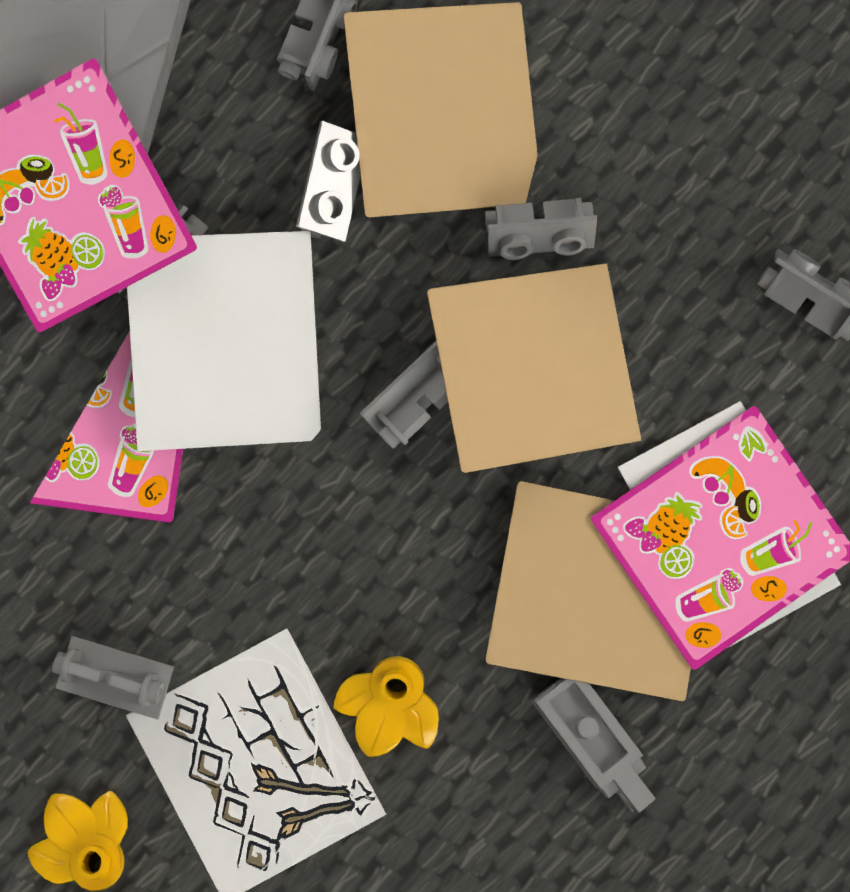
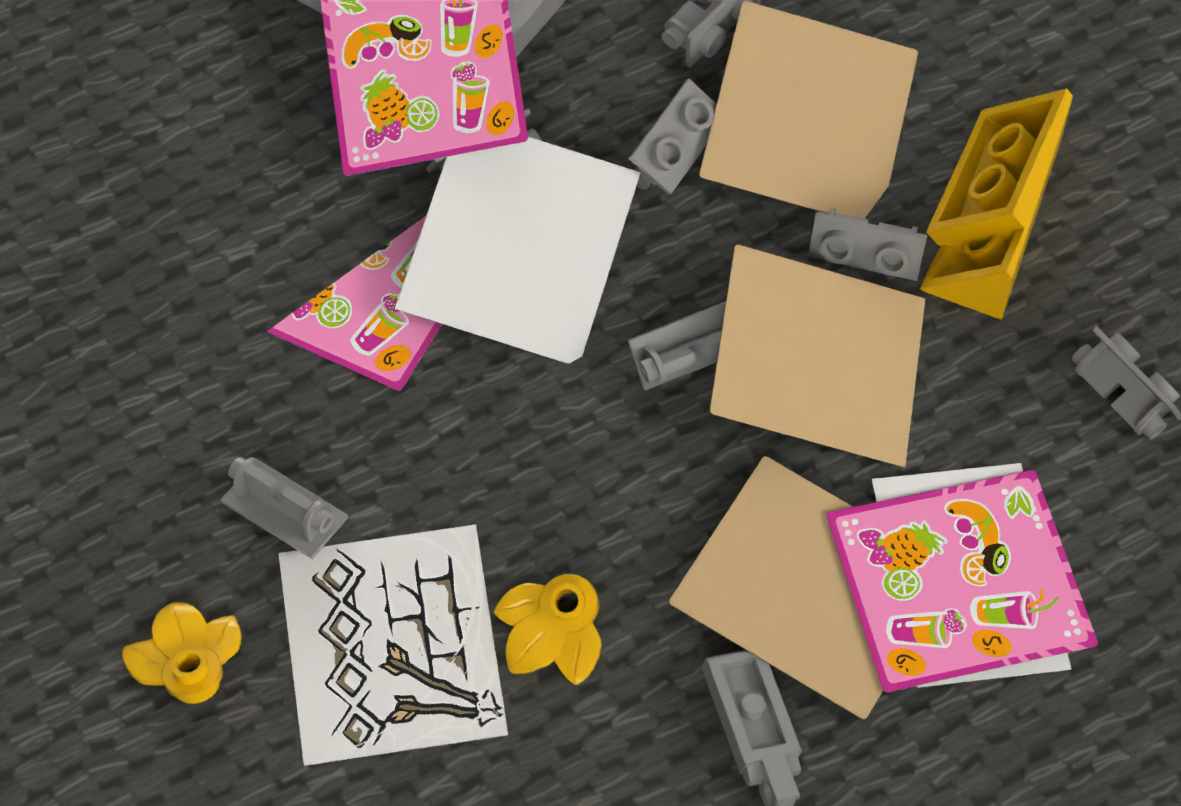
camera: 20 degrees right, 25 degrees down
(644, 145) = (994, 201): none -> yellow slope

